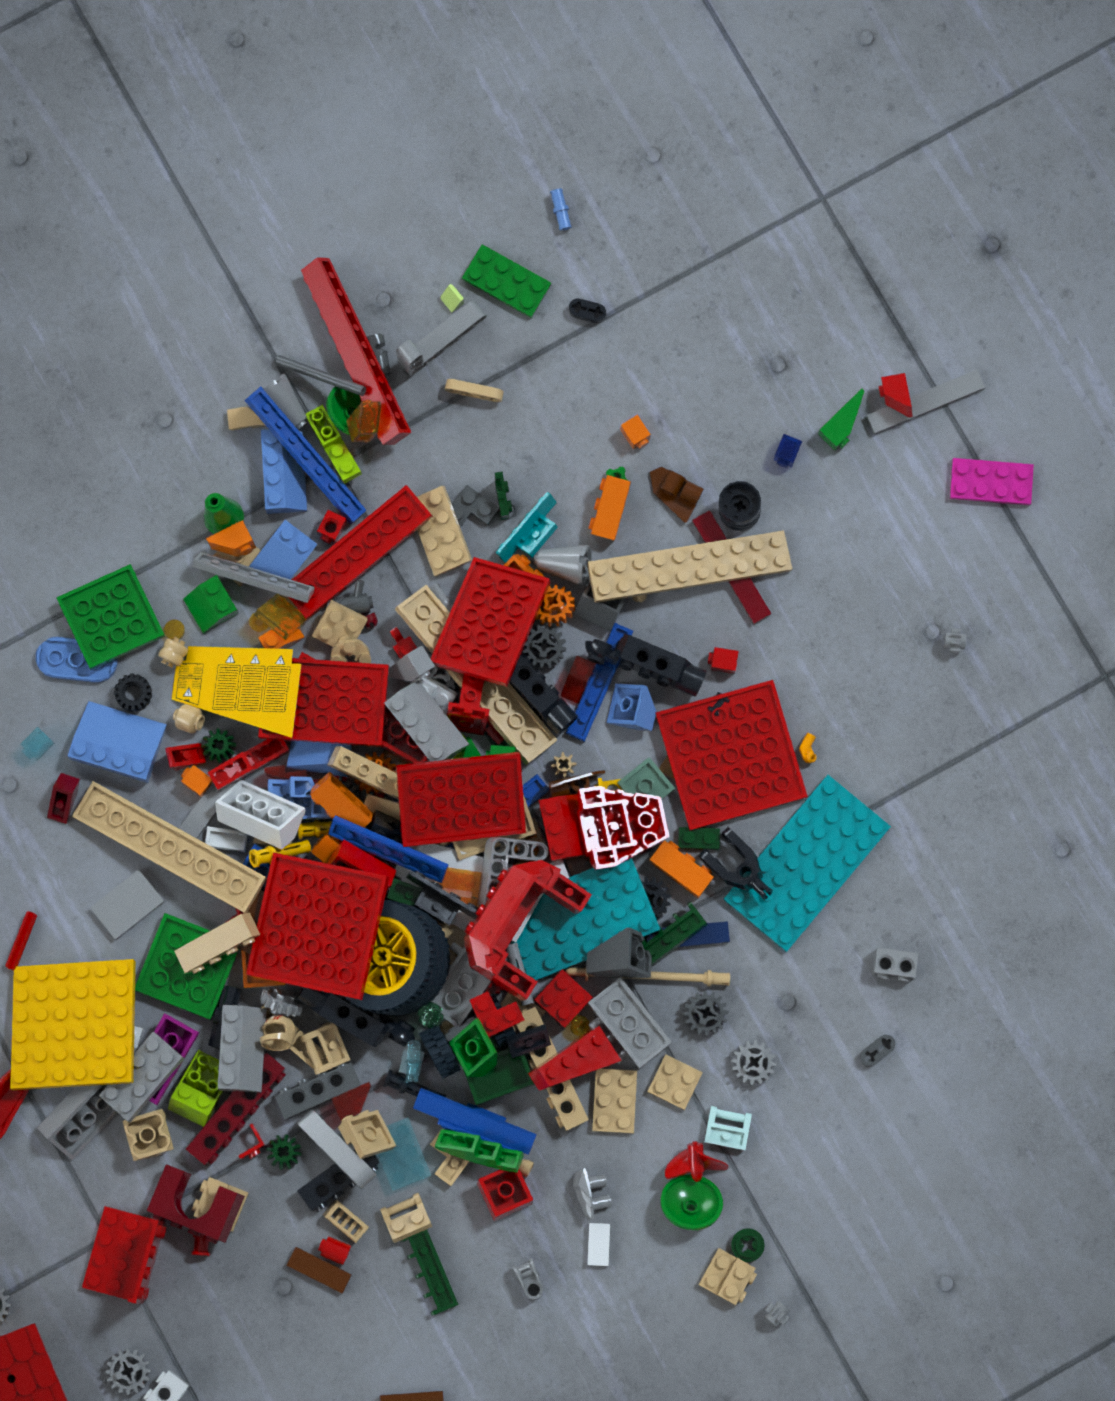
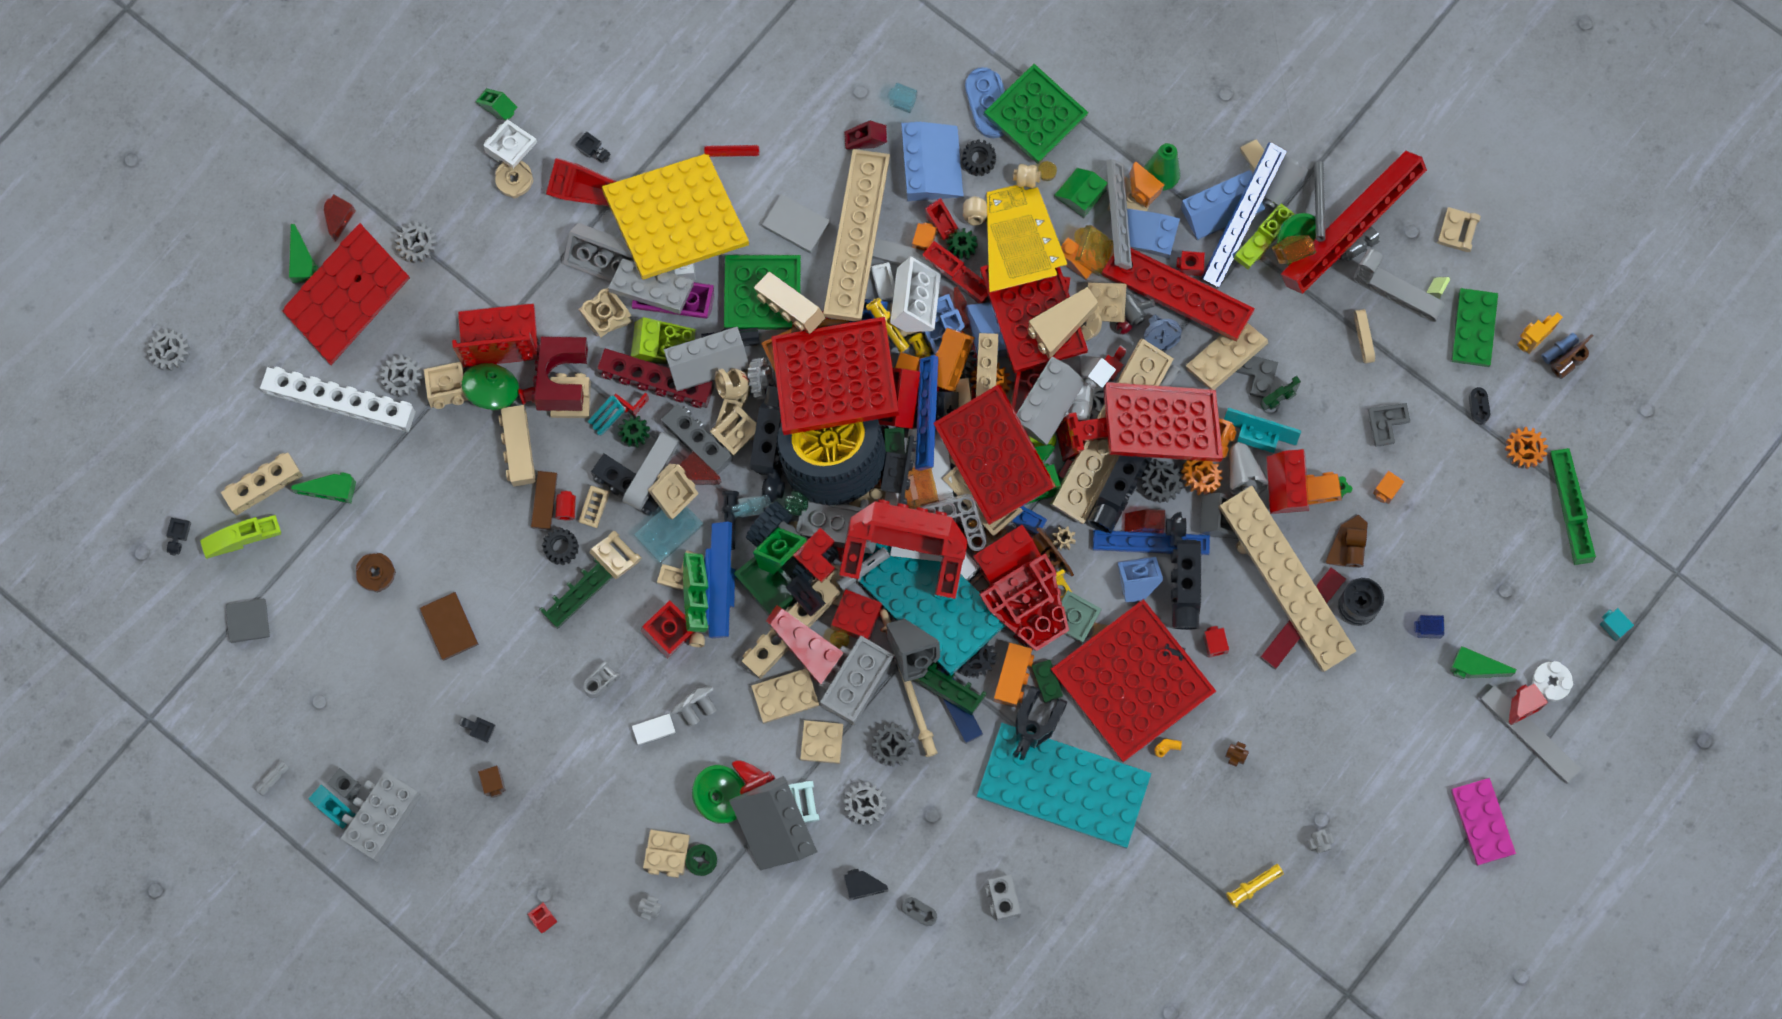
camera: 75 degrees right, 5 degrees down
(157, 1328) = (444, 385): none -> tan plate
(182, 1290) = (490, 386): none -> green dish
(251, 1276) = (518, 446): none -> tan brick
(261, 1188) = (596, 425): none -> teal tile
(350, 678) = (1061, 321): none -> tan slope
(361, 1270) = (557, 535): none -> black tyre
(393, 585) = (1163, 333): none -> sand blue tile
(396, 258) = (1452, 228): none -> tan plate
(541, 228) = (1537, 332): none -> light orange plate
(565, 409) = (1384, 418): none -> dark grey plate
(579, 211) = (1568, 362): none -> reddish brown panel
(596, 526) = (1287, 482): none -> red slope
(655, 281) = (1521, 442): none -> orange gear
(721, 266) = (1572, 507): none -> green slope
(743, 1159) = (773, 824): none -> dark grey slope
(831, 1097) = (862, 884): none -> black slope
(841, 685) = (1237, 754): none -> reddish brown gear
(852, 276) = (1616, 623): none -> teal brick
(874, 352) = (1560, 673): none -> white plate
(974, 728) = (1247, 890): none -> yellow pin

